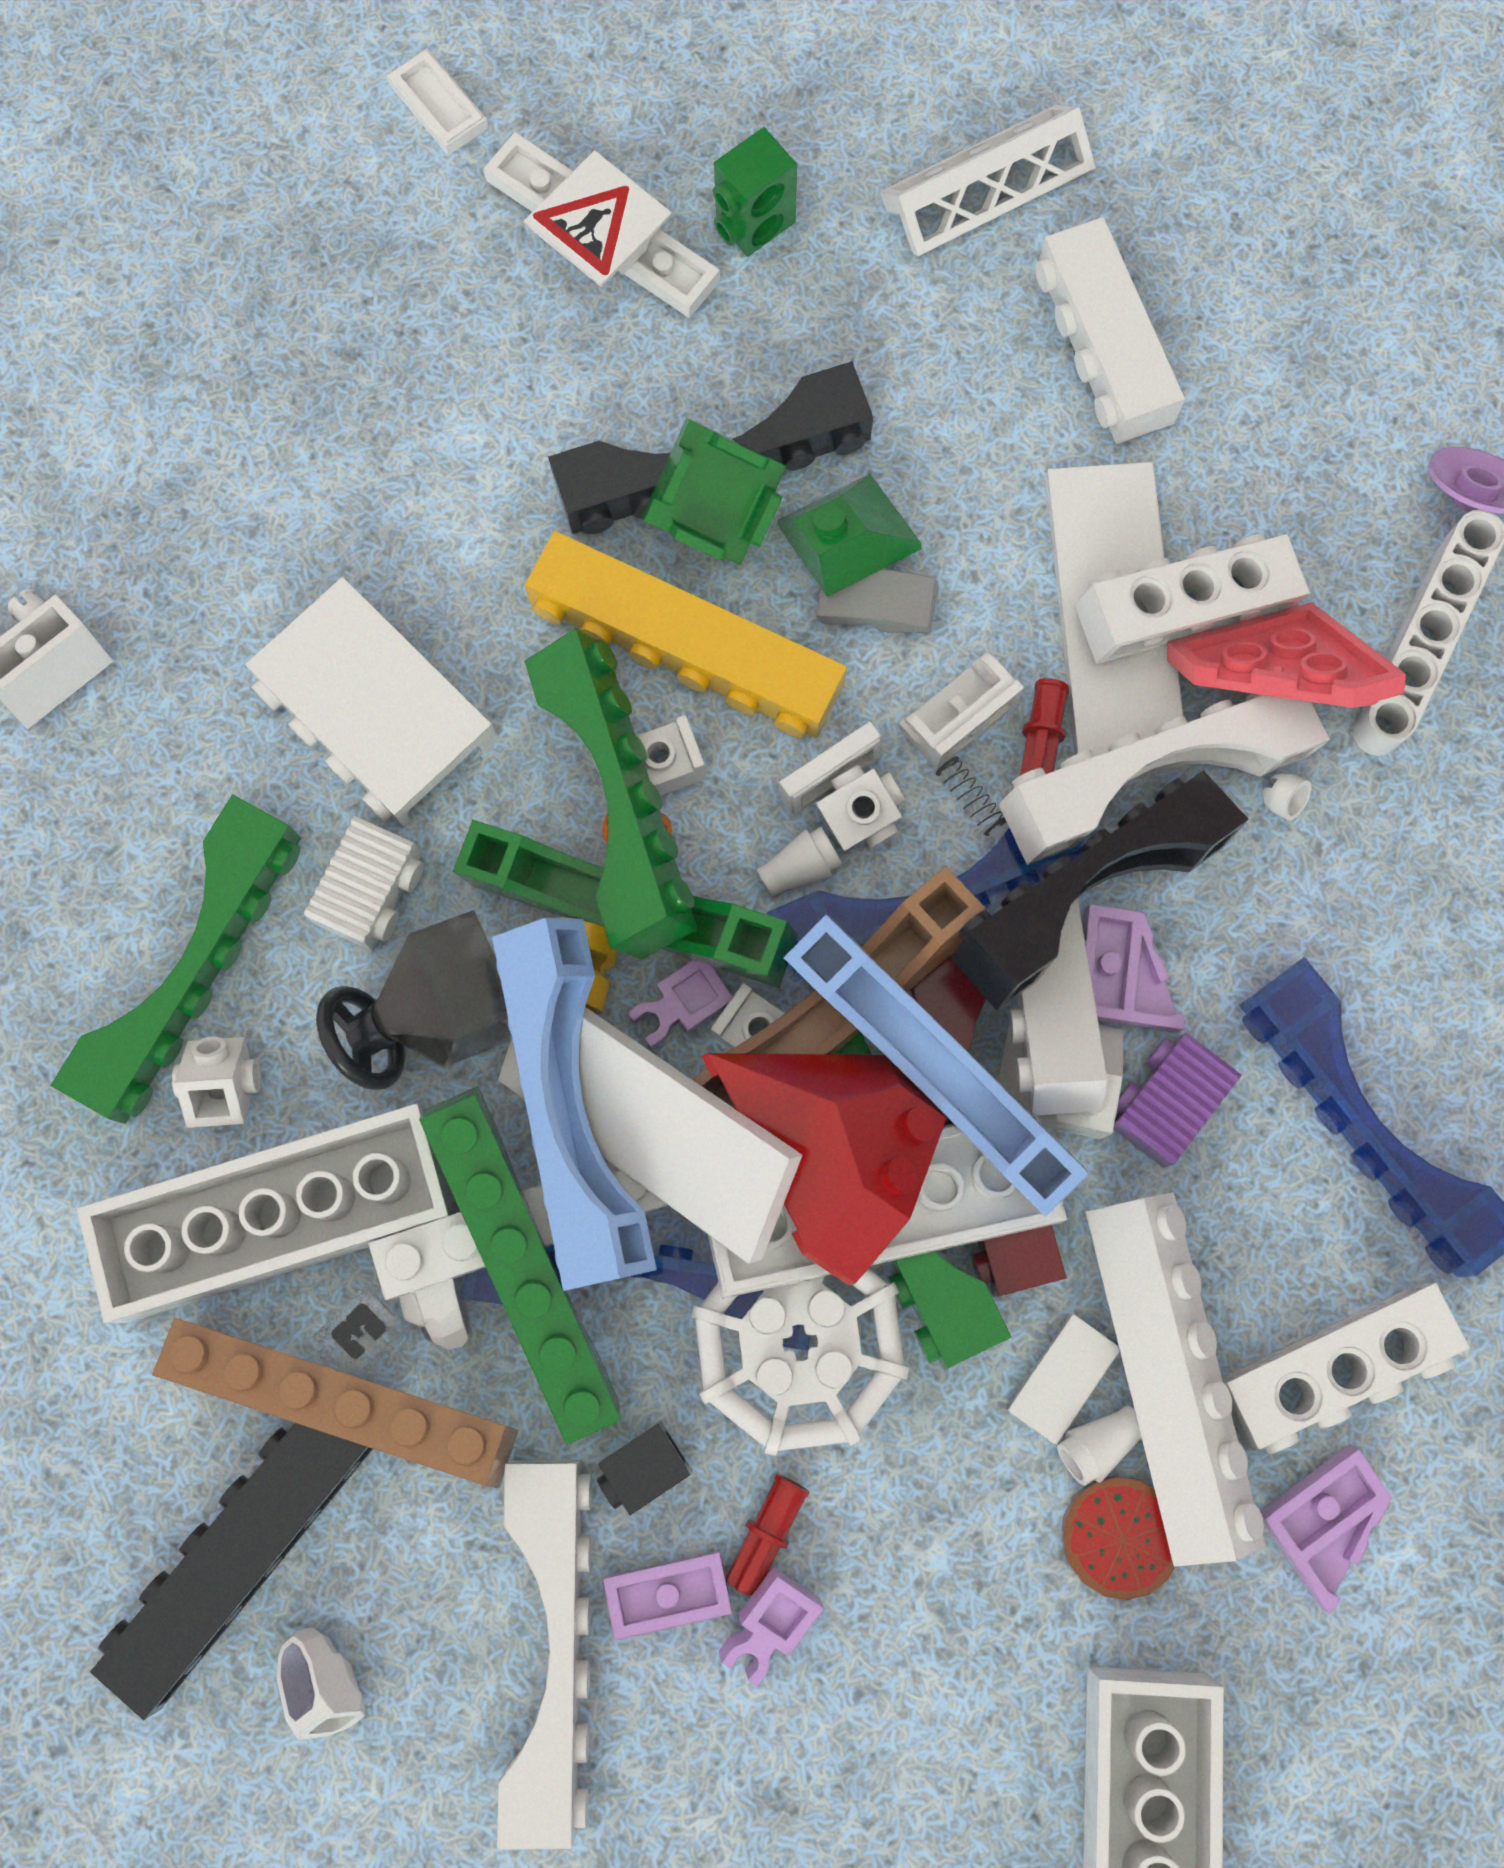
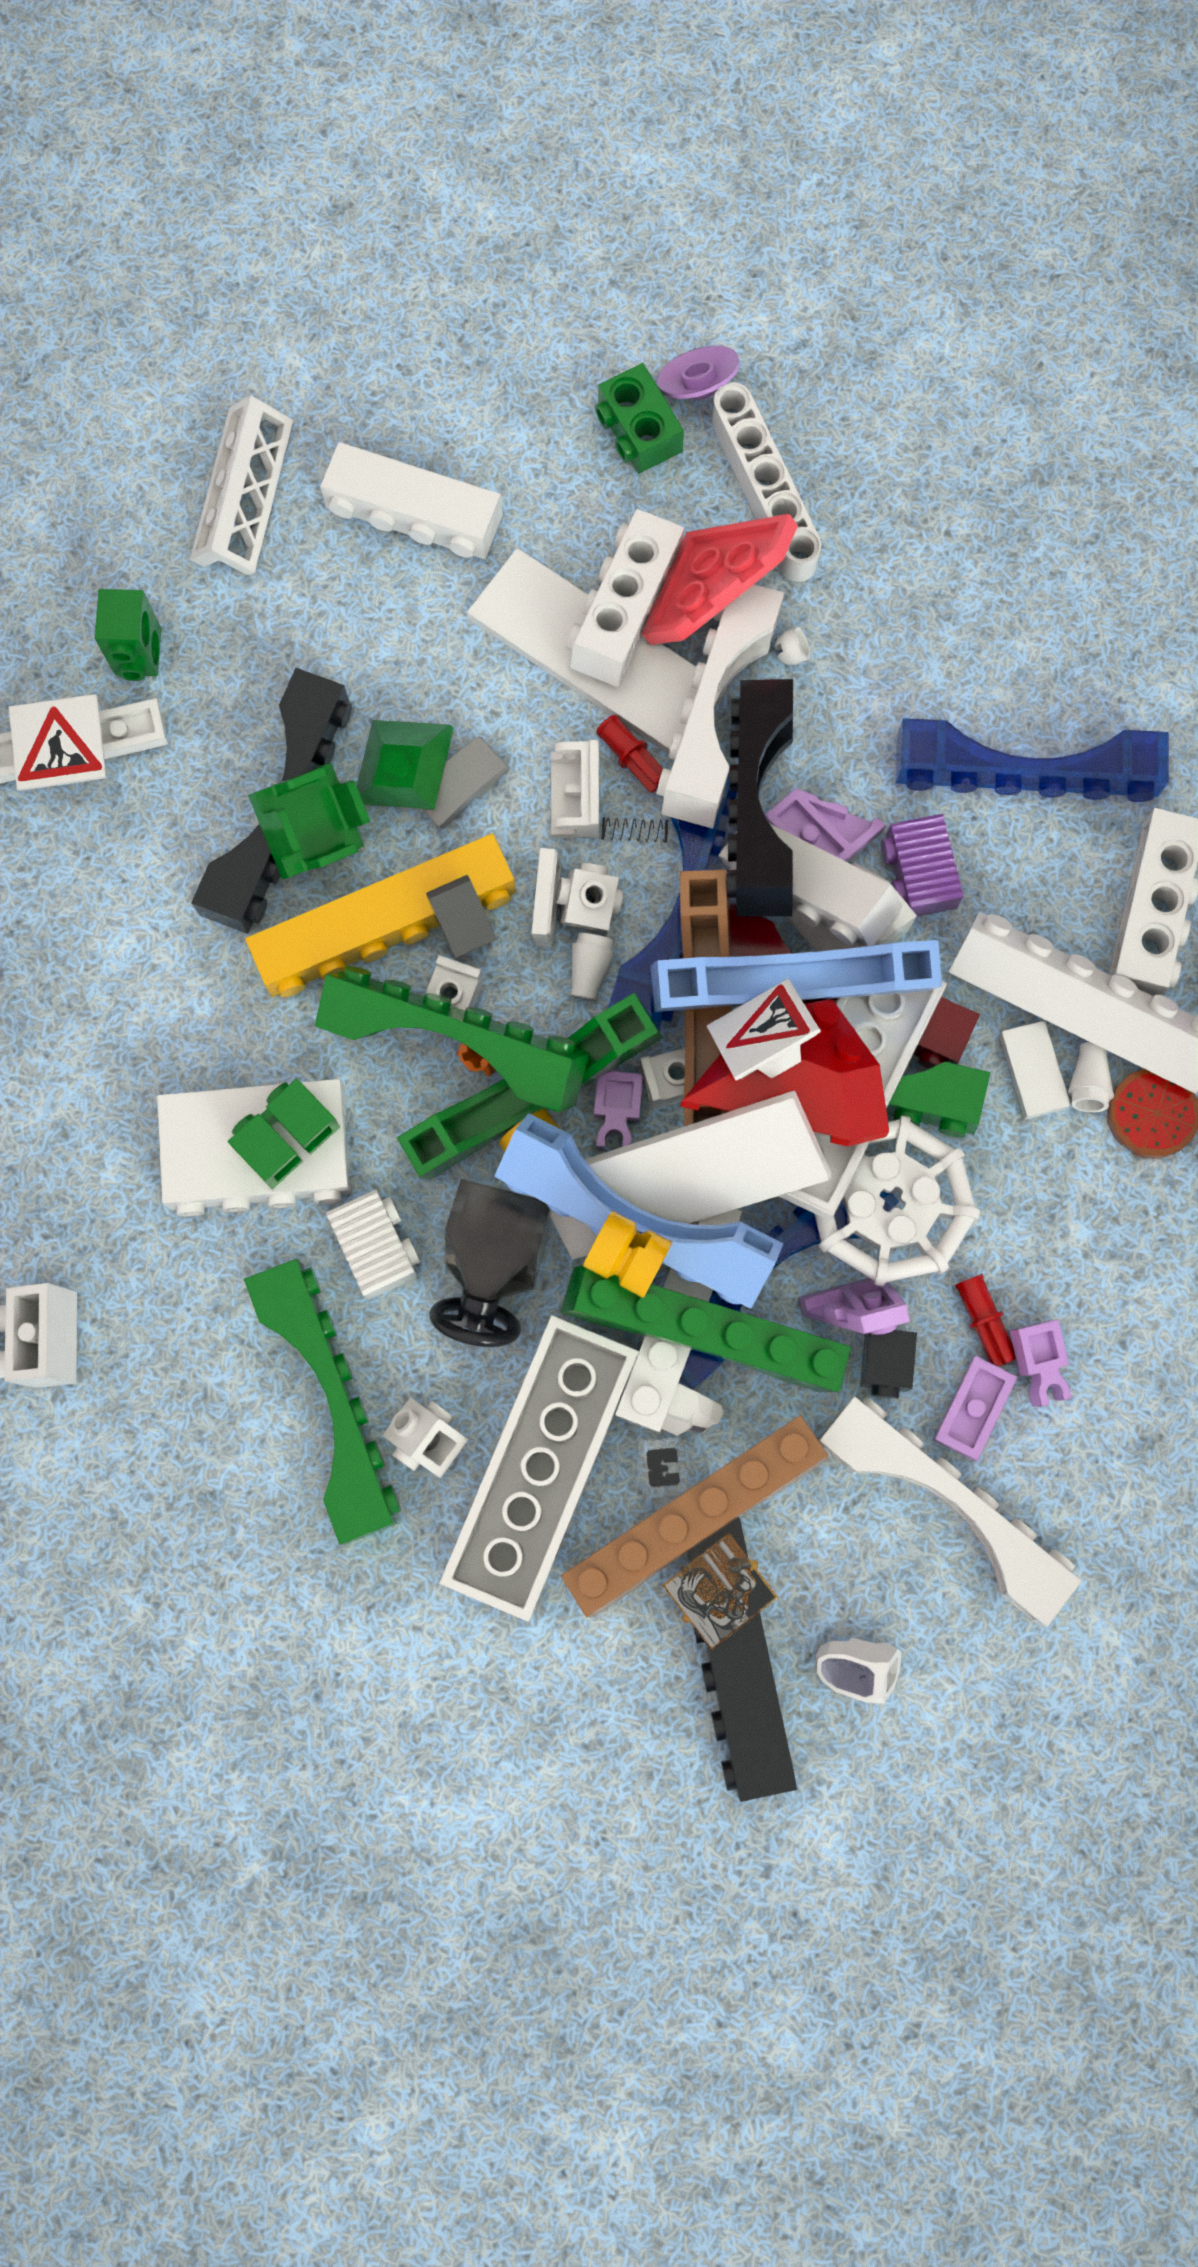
camera: 50 degrees left, 0 degrees up
(278, 1485) = (720, 1591): none -> piece
(377, 711) = (303, 1119): none -> green piece
(510, 1125) = (627, 1254): none -> yellow wheel
(667, 1395) = (857, 1307): none -> lavender wing
(736, 704) = (460, 917): none -> dark grey slope
(843, 1078) = (764, 1032): none -> white piece
(1388, 469) = (647, 416): none -> green brick

